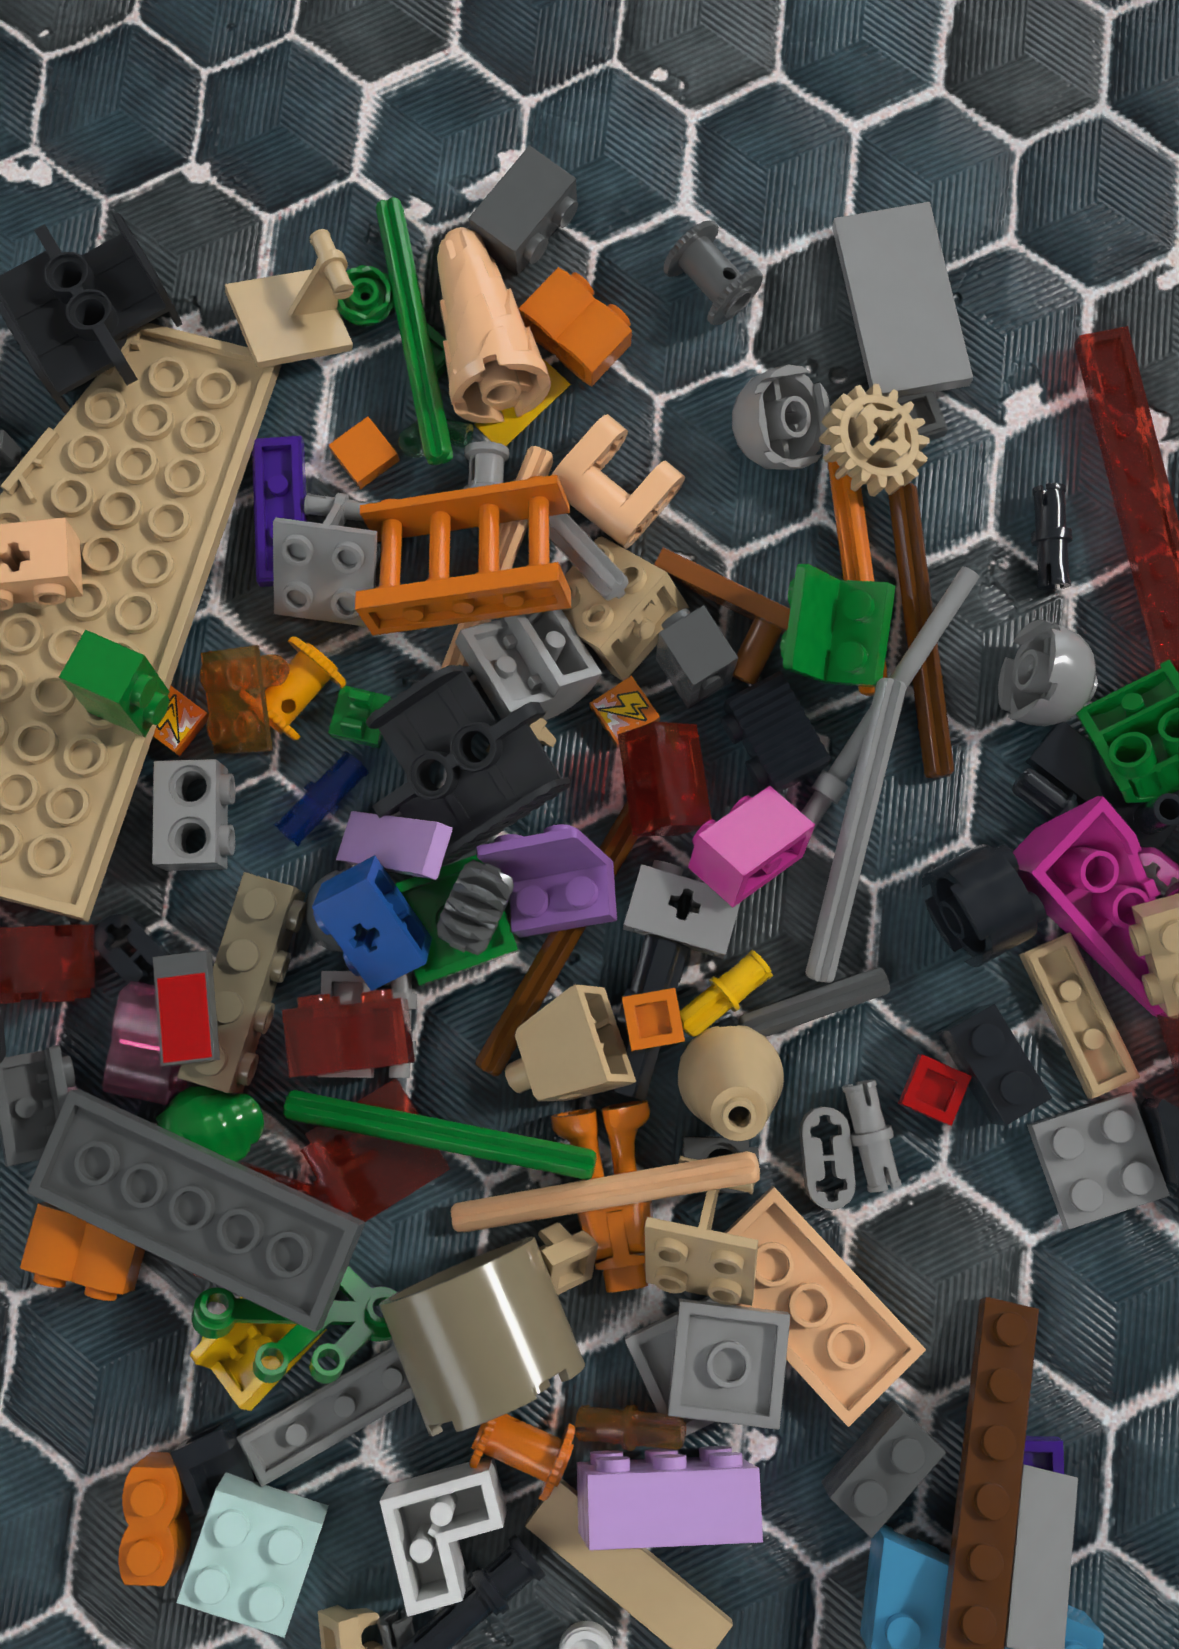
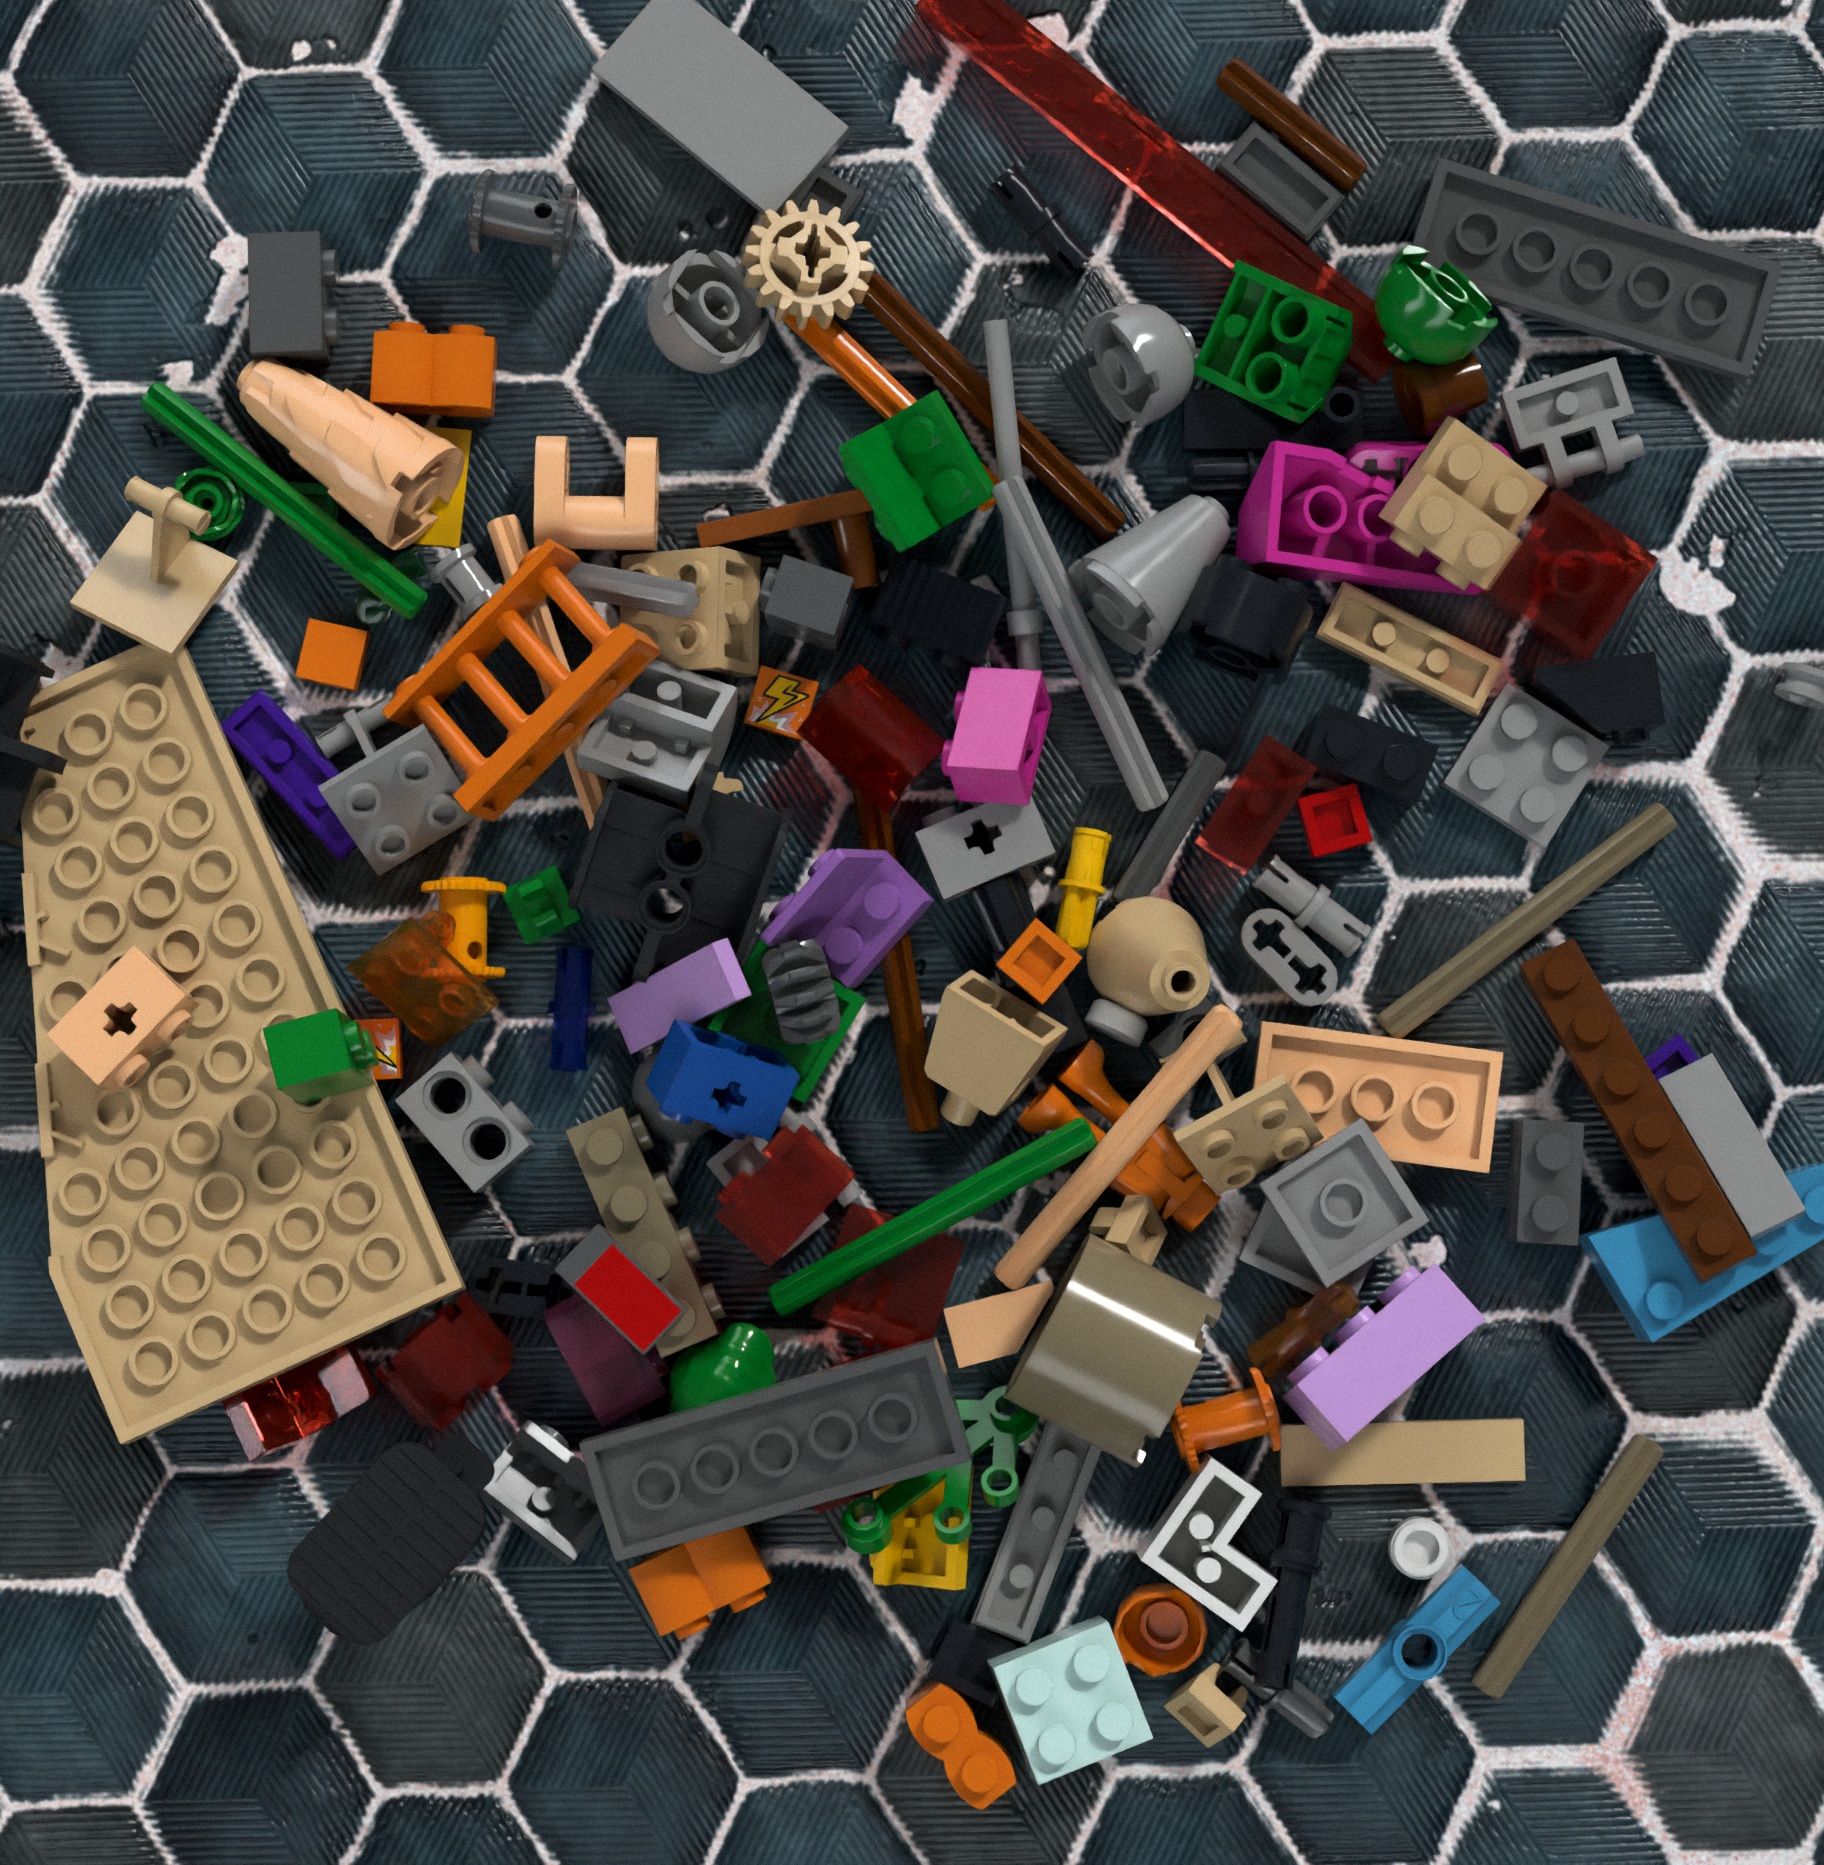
camera: 45 degrees left, 5 degrees up
(355, 1557) = (1160, 1629): none -> orange hair
(424, 1242) = (995, 1324): none -> light nougat tile
(674, 1105) = (1117, 1022): none -> white tile
(890, 1035) = (1256, 805): none -> clear red brick
(941, 818) = (1150, 571): none -> light grey cone
(1015, 1269) = (1526, 921): none -> dark tan axle

